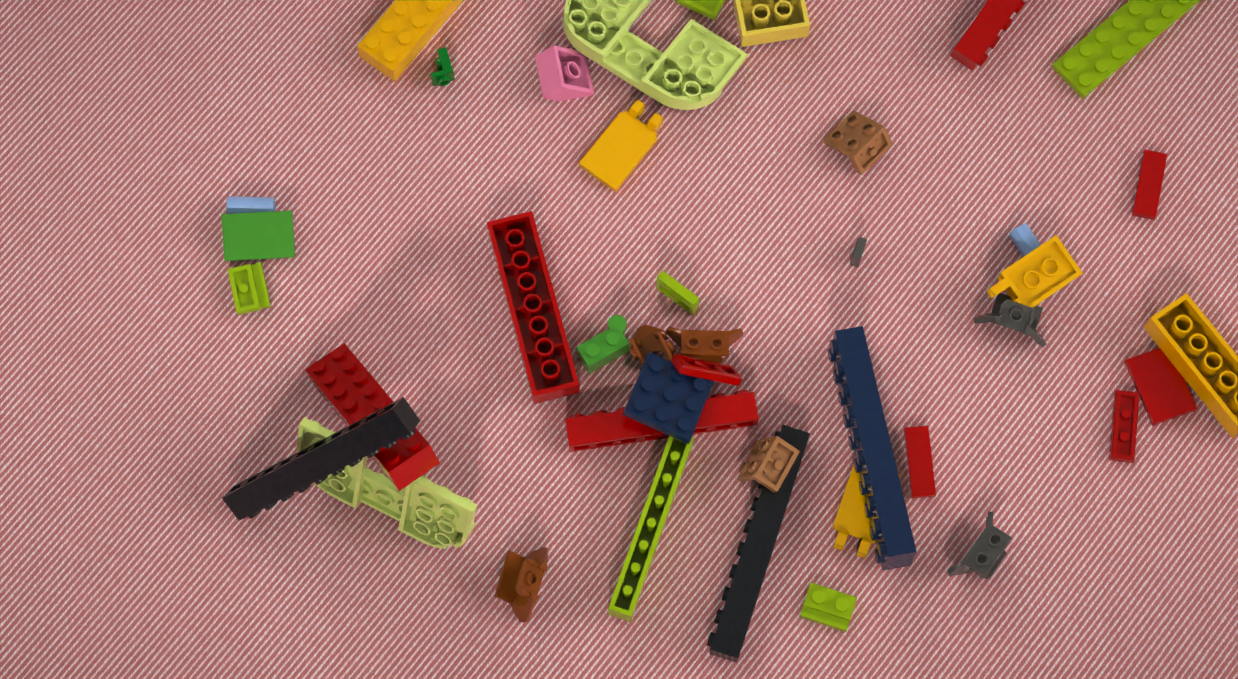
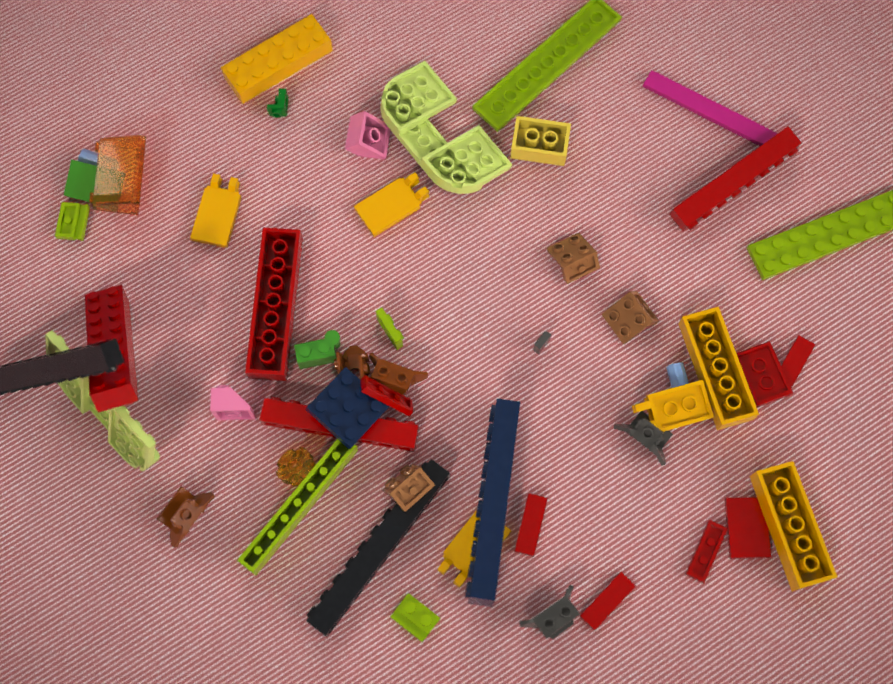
camera: 20 degrees right, 0 degrees up
(289, 212) = (119, 174): none -> clear orange windscreen
(418, 223) = (217, 213): none -> yellow tile
(529, 439) = (228, 405): none -> bright pink slope
(637, 492) = (304, 464): none -> clear yellow plate
(947, 190) = (629, 316): none -> medium nougat bracket
(1035, 517) = (607, 601): none -> red tile
(1069, 214) = (718, 367): none -> yellow brick
(1119, 207) = (764, 374): none -> red tile

